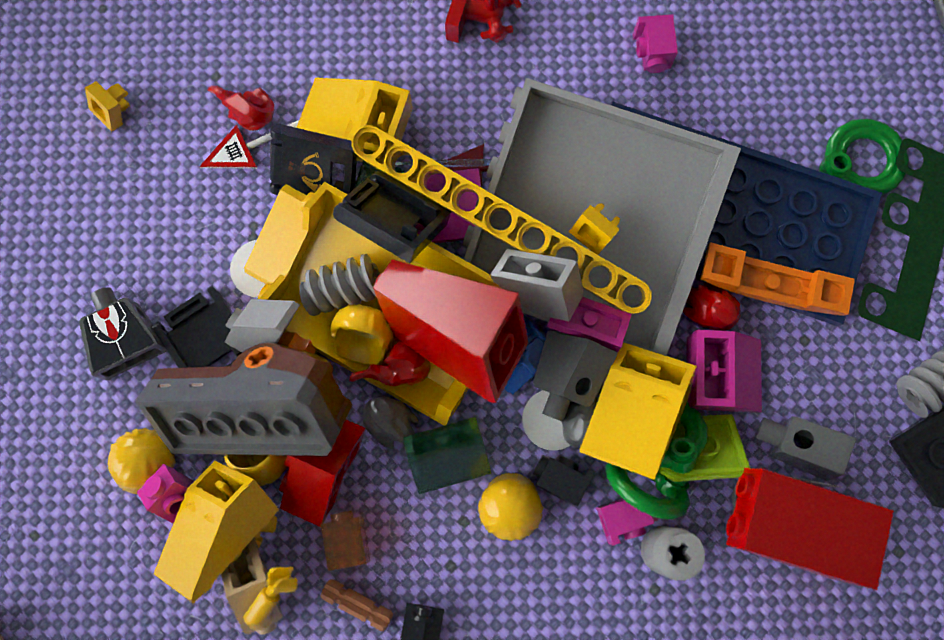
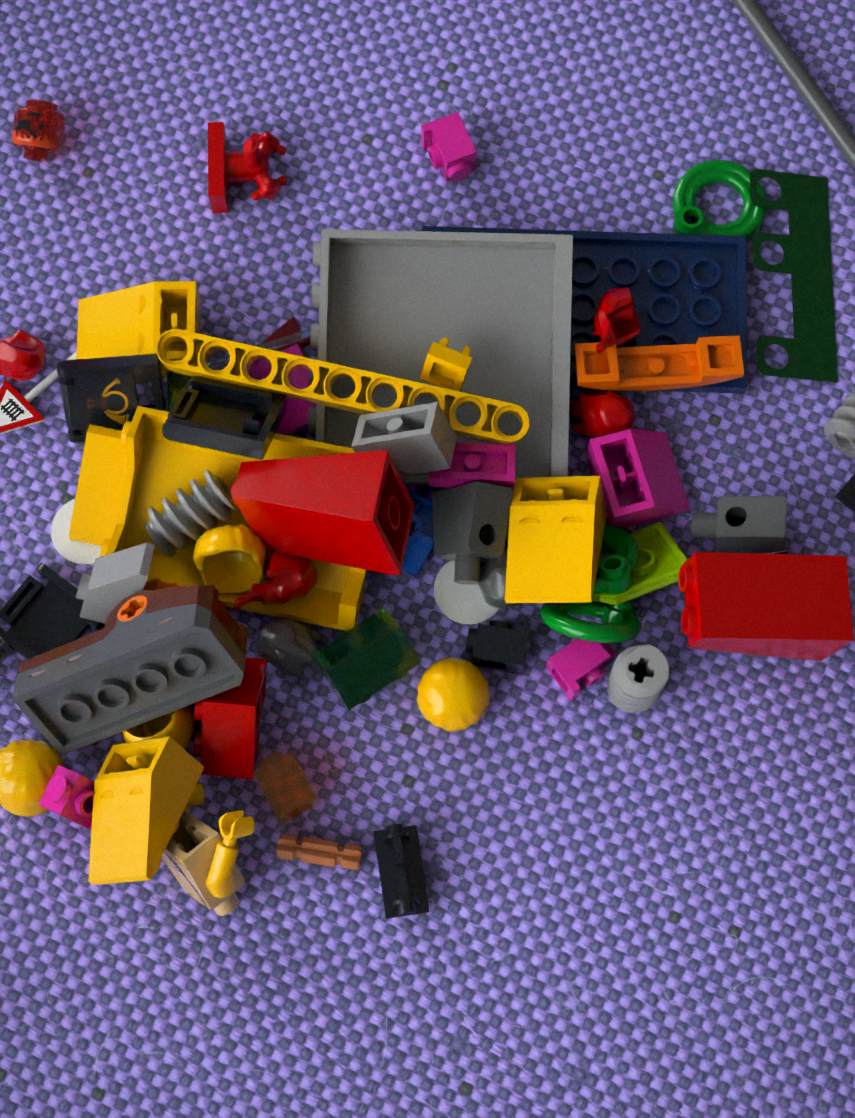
camera: 20 degrees left, 5 degrees down
(751, 230) = (615, 319): none -> red piece

